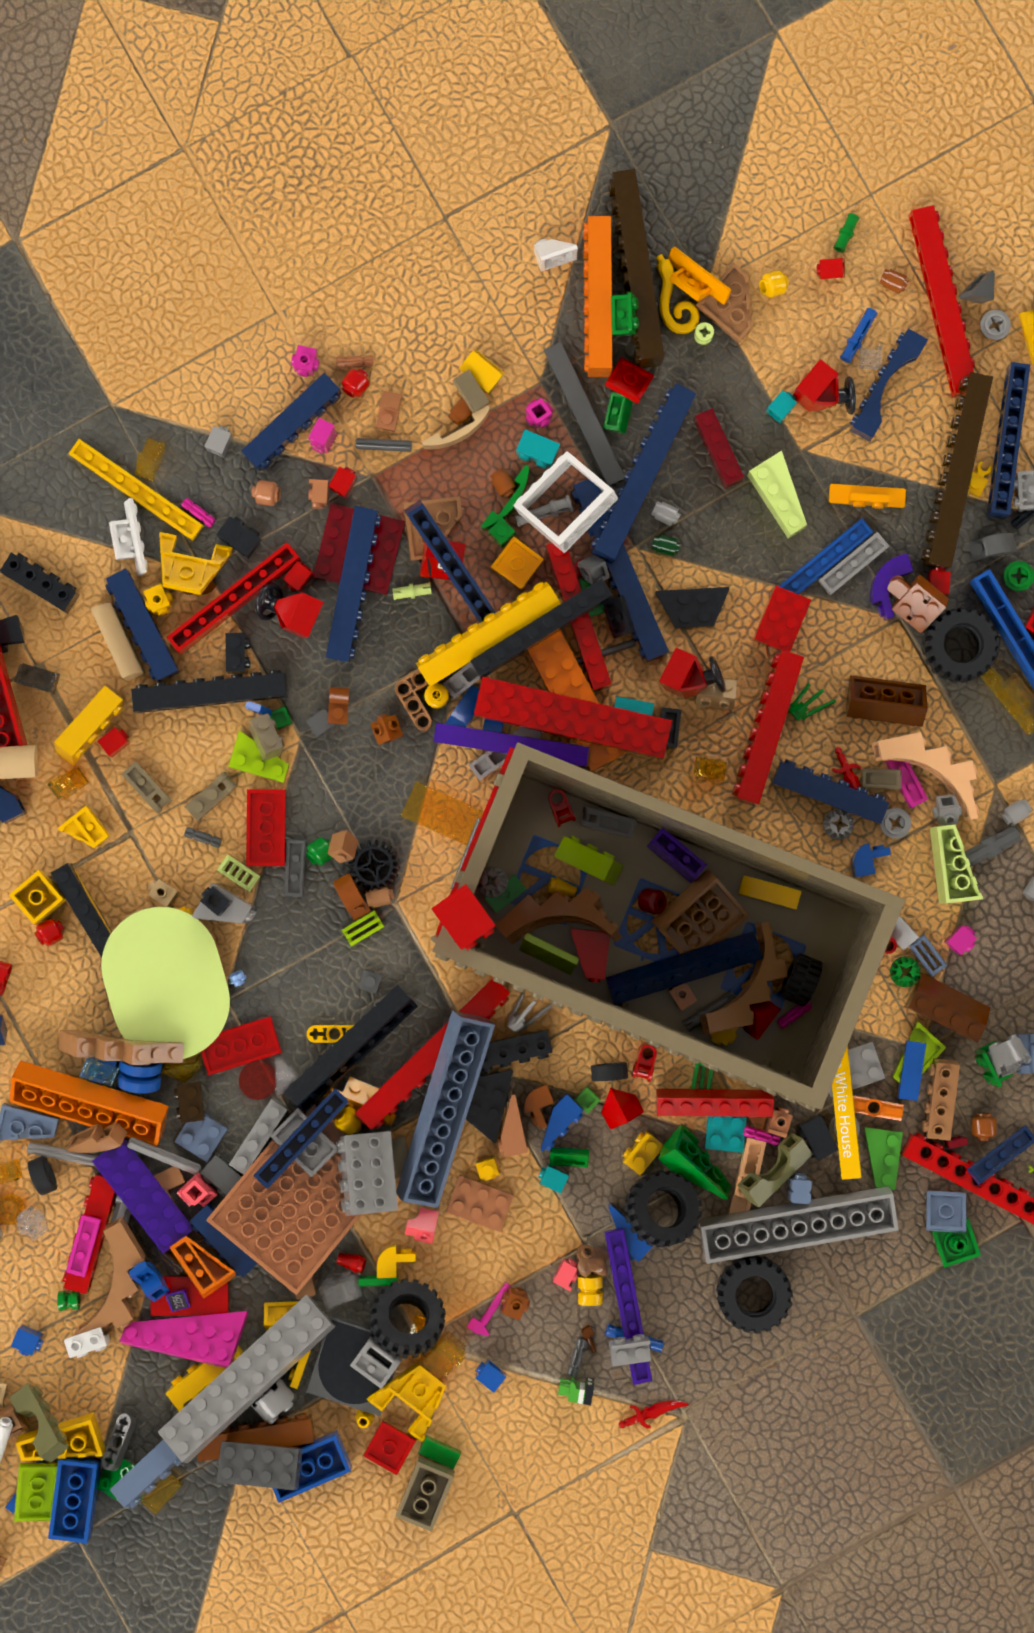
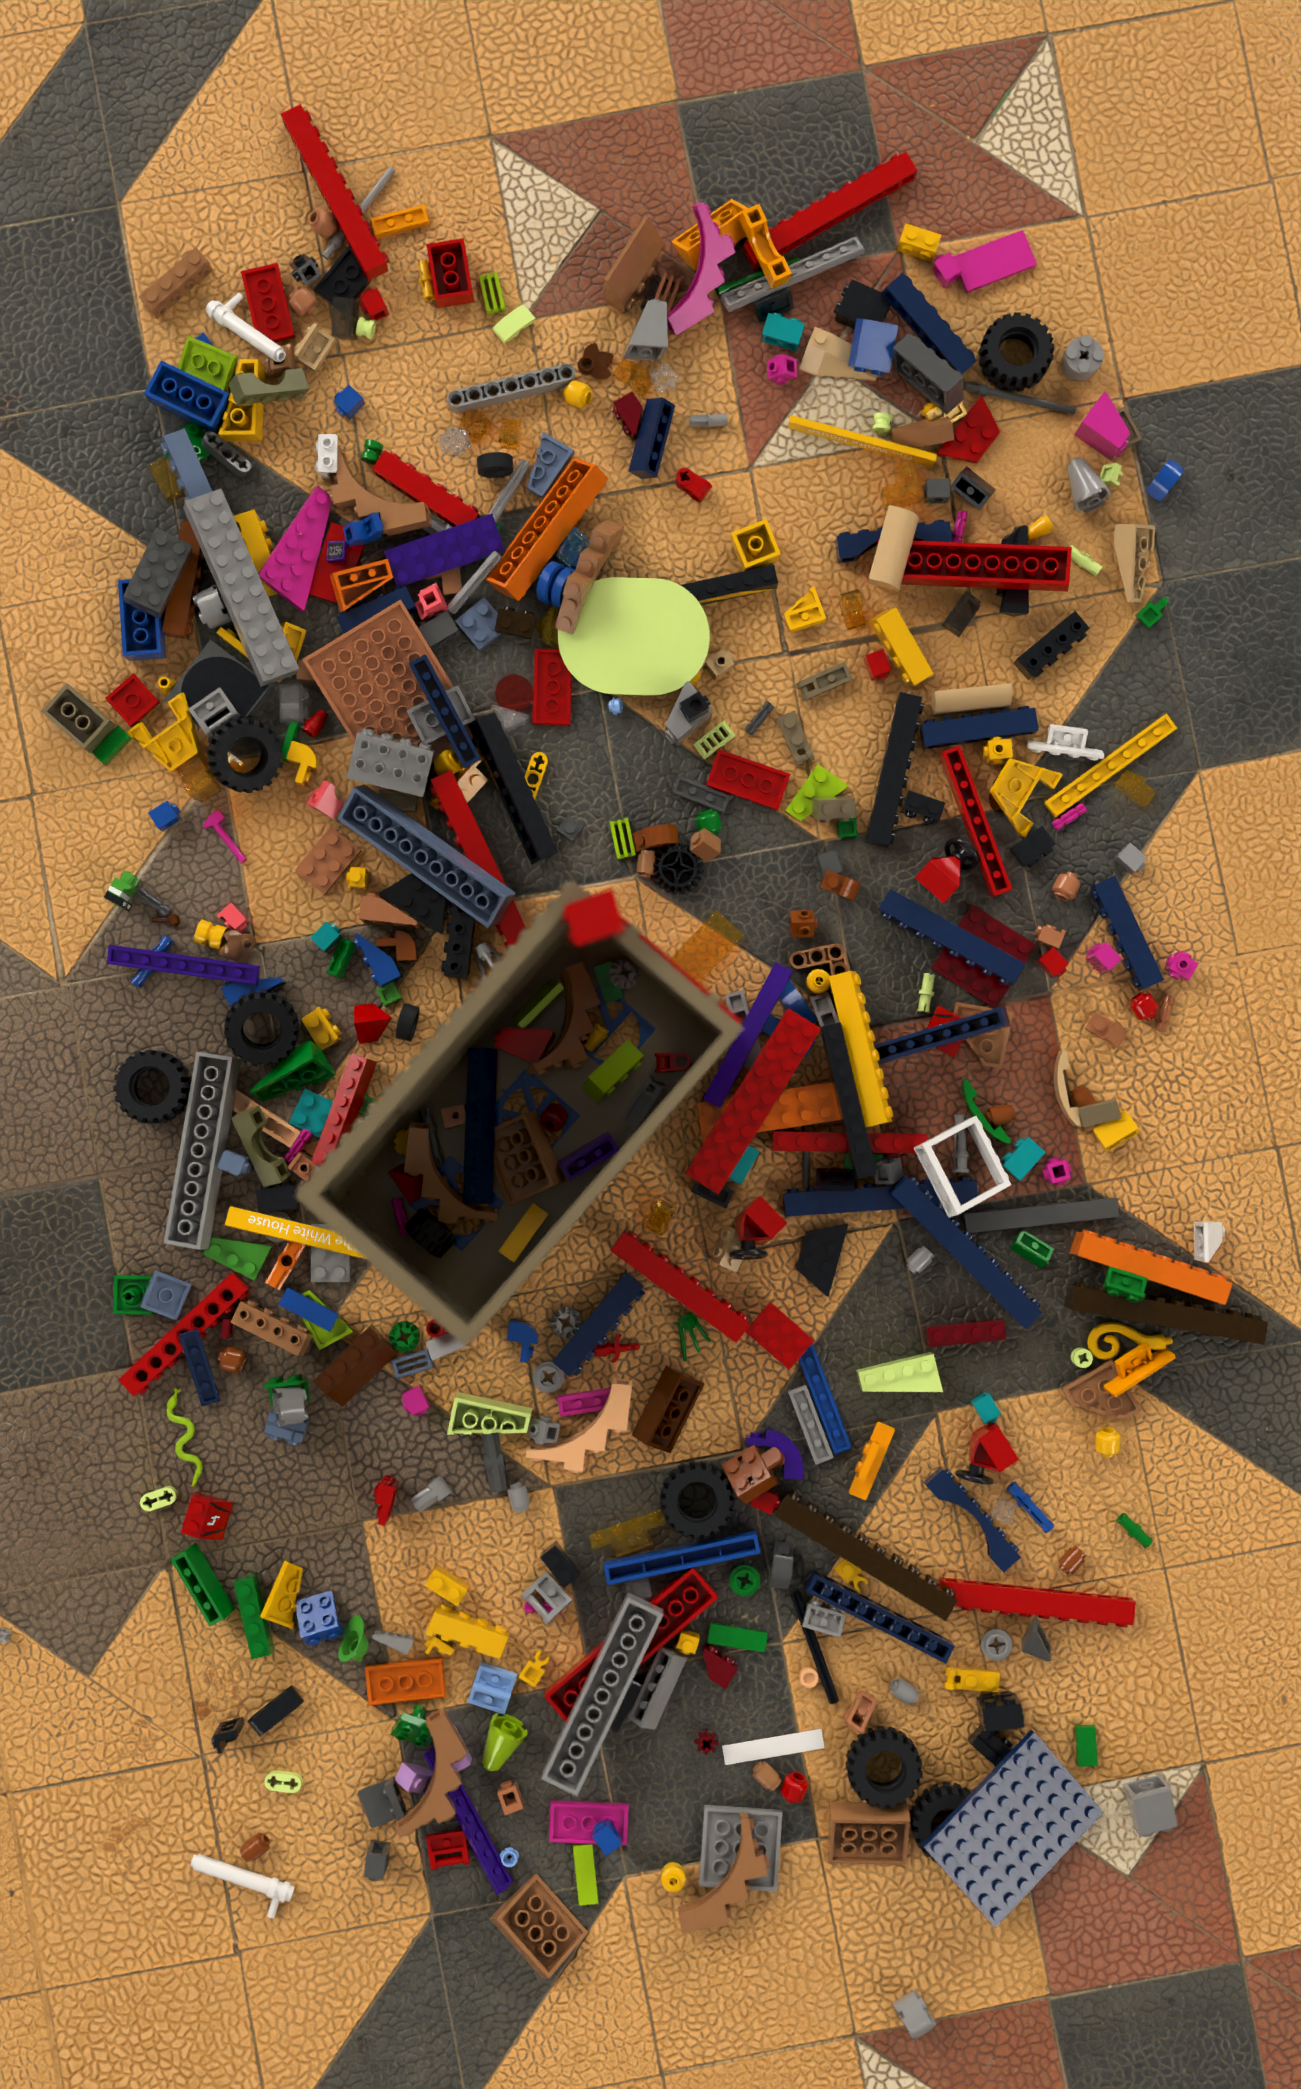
camera: 105 degrees right, 0 degrees up
(49, 932) = (719, 546): red head -> none
(83, 1245) = (416, 480): dark pink plate -> none
(97, 1139) = (510, 526): medium nougat slope -> none
(258, 708) = (863, 809): tile -> none
(259, 1135) = (462, 676): light grey brick -> none
(298, 576) = (976, 890): red brick -> none
(383, 444) = (1075, 1013): dark grey axle -> none
(501, 532) = (953, 1096): green brick -> none
(514, 1302) = (224, 860): dark orange brick -> none
(517, 563) = (919, 1101): light orange plate -> none
(629, 380) = (1059, 1269): red plate -> none
(630, 1350) = (141, 951): light grey bracket -> none
(644, 1063) = (399, 1056): red piece -> none
(651, 1412) = (78, 953): red piece -> none
(665, 545) = (888, 1249): dark green brick -> none
(831, 268) = (1104, 1503): red brick -> none
(882, 778) = (595, 1378): dark tan tile -> none

